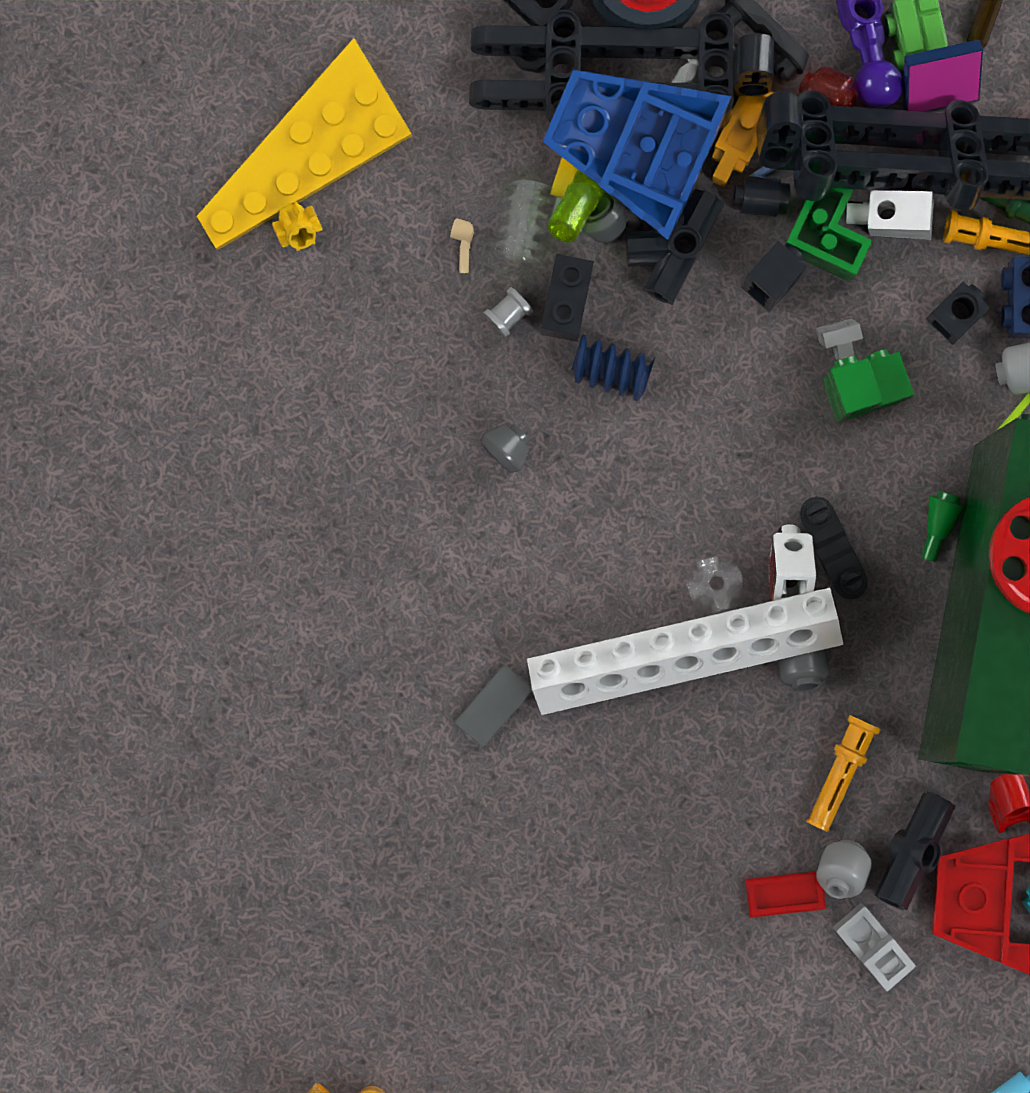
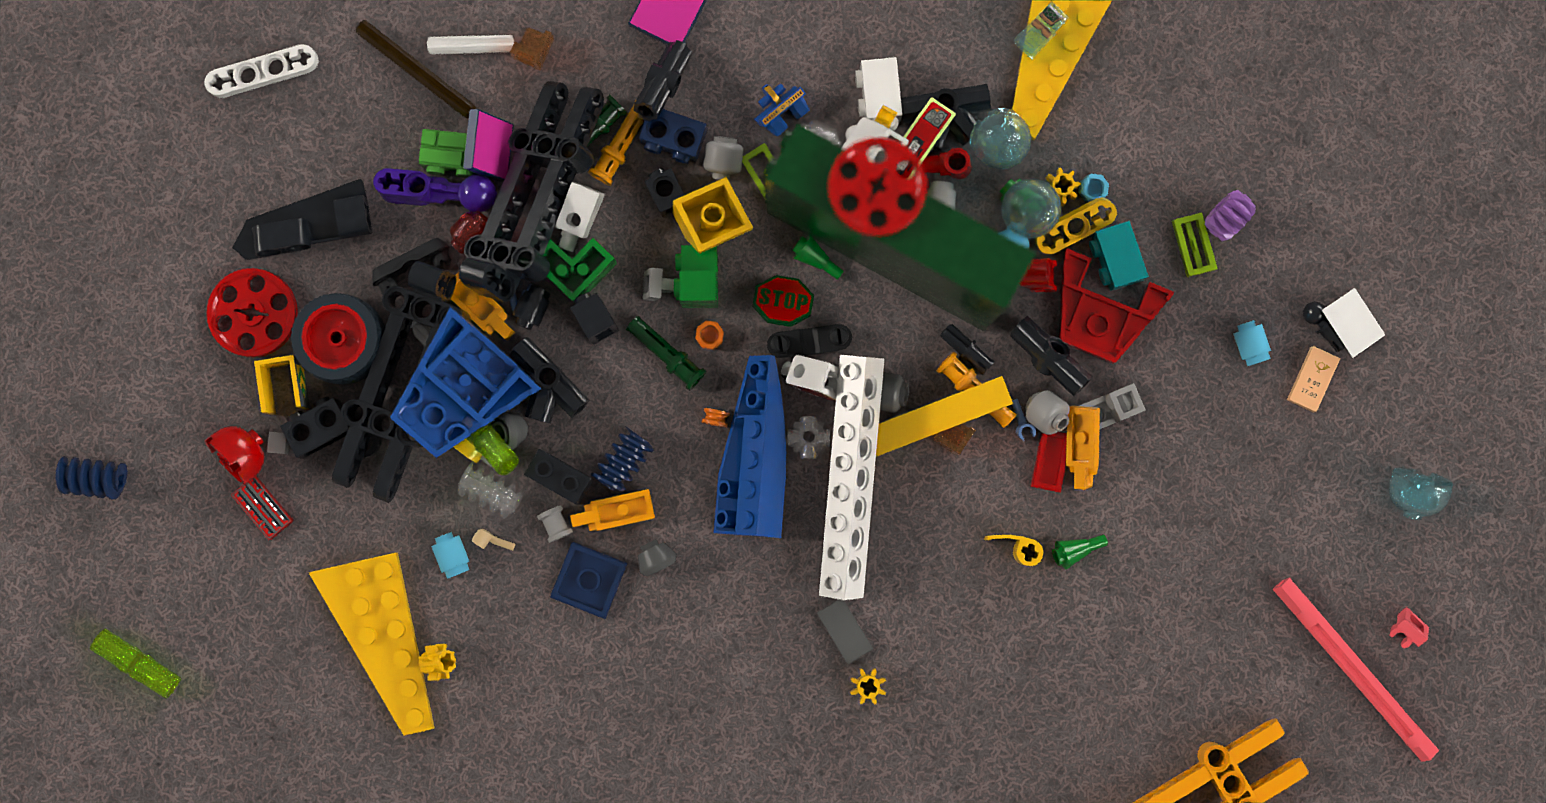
camera: 70 degrees left, 0 degrees up
(430, 200) = (450, 555): none -> medium azure brick
(443, 764) = (871, 694): none -> yellow gear
(453, 375) = (588, 580): none -> dark blue tile
(547, 380) = (616, 511): none -> light orange hinge
(668, 527) = (754, 457): none -> blue wedge
(673, 888) = (1019, 544): none -> yellow panel
(681, 953) = (1071, 551): none -> green cone
(701, 463) = (715, 417): none -> orange bush
(754, 393) = (676, 361): none -> dark green pin
(776, 761) = (954, 438): none -> clear orange panel
(796, 739) = (942, 415): none -> yellow tile
(799, 423) = (709, 335): none -> orange tile
(818, 926) = (1083, 444): none -> light orange hinge
(823, 841) = (1021, 420): none -> medium blue hand
(872, 499) = (783, 301): none -> piece
(889, 744) = (966, 348): none -> black axle
(948, 375) = (711, 215): none -> yellow slope

